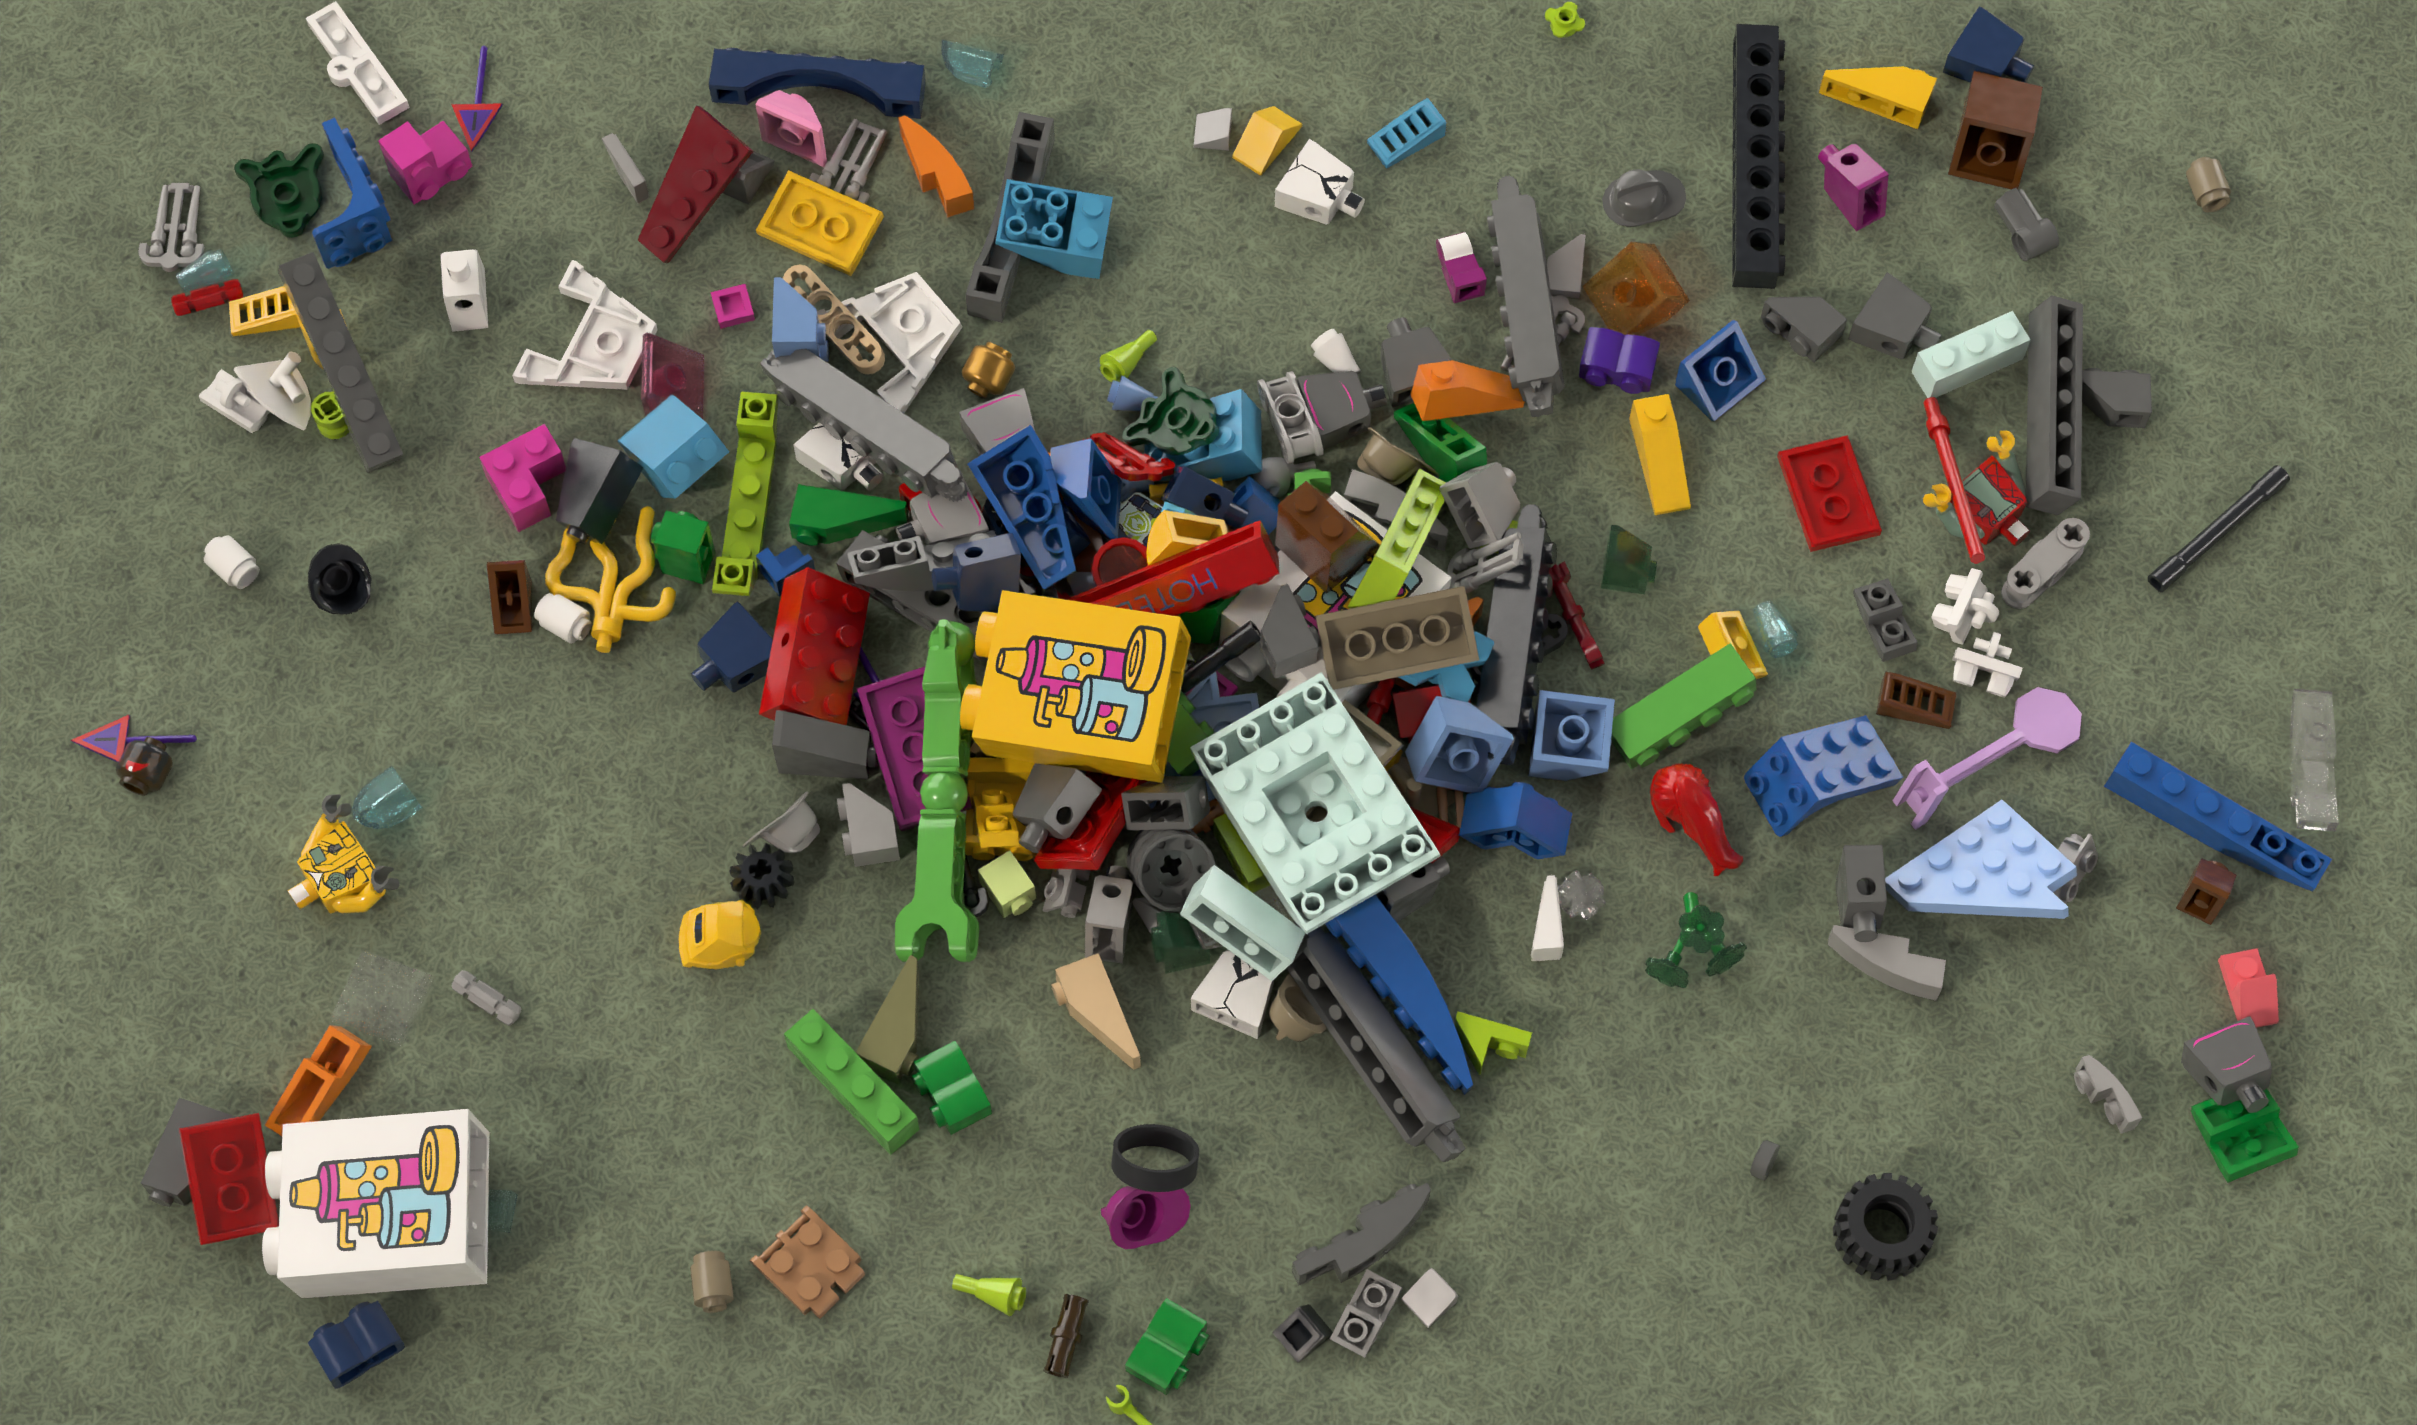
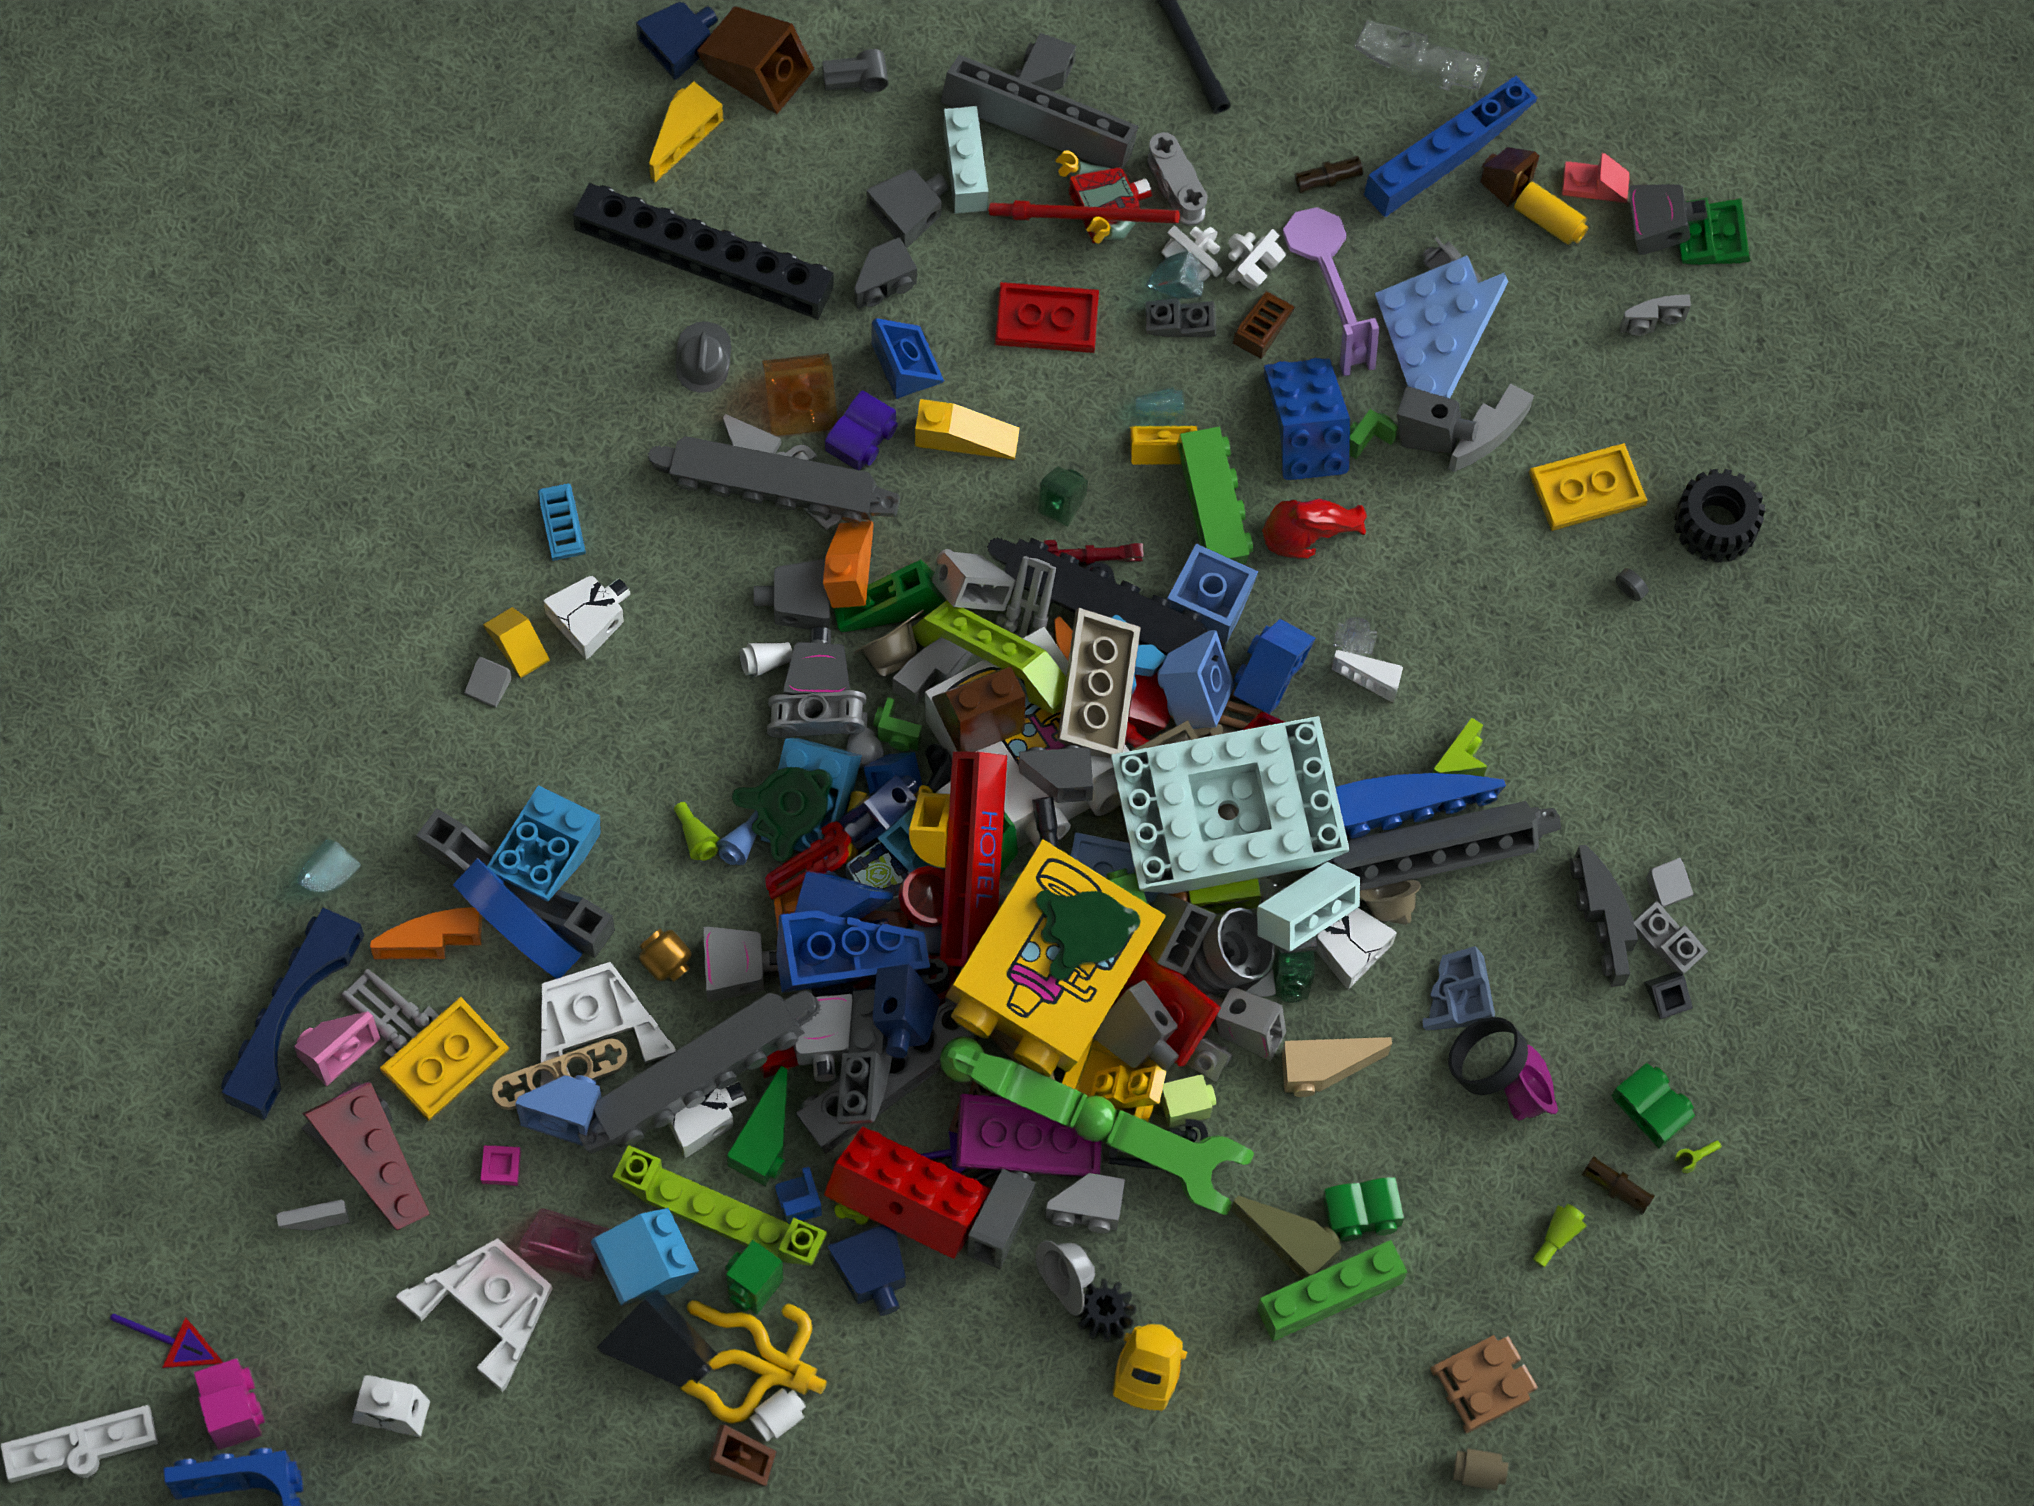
camera: 75 degrees left, 0 degrees up
(519, 469) = (613, 1417): dark pink brick -> none
(964, 226) = (516, 920): none -> blue slope
(1104, 691) = (1085, 927): none -> dark green tile
(1227, 1119) = (1461, 991): none -> sand blue slope
(1460, 267) = (716, 525): magenta leg -> none
(1564, 28) = (502, 361): lime plate -> none
(1702, 931) = (1436, 550): clear green plant -> none
(1826, 834) = (1371, 425): none -> bright green bracket
(1855, 184) = (765, 183): magenta torso -> none
(1867, 1085) = (1588, 486): none -> yellow tile
(1926, 596) = (1177, 277): none -> clear light blue brick
(2124, 711) = (1328, 174): none -> dark brown pin
(2182, 950) = (1551, 214): none -> yellow brick

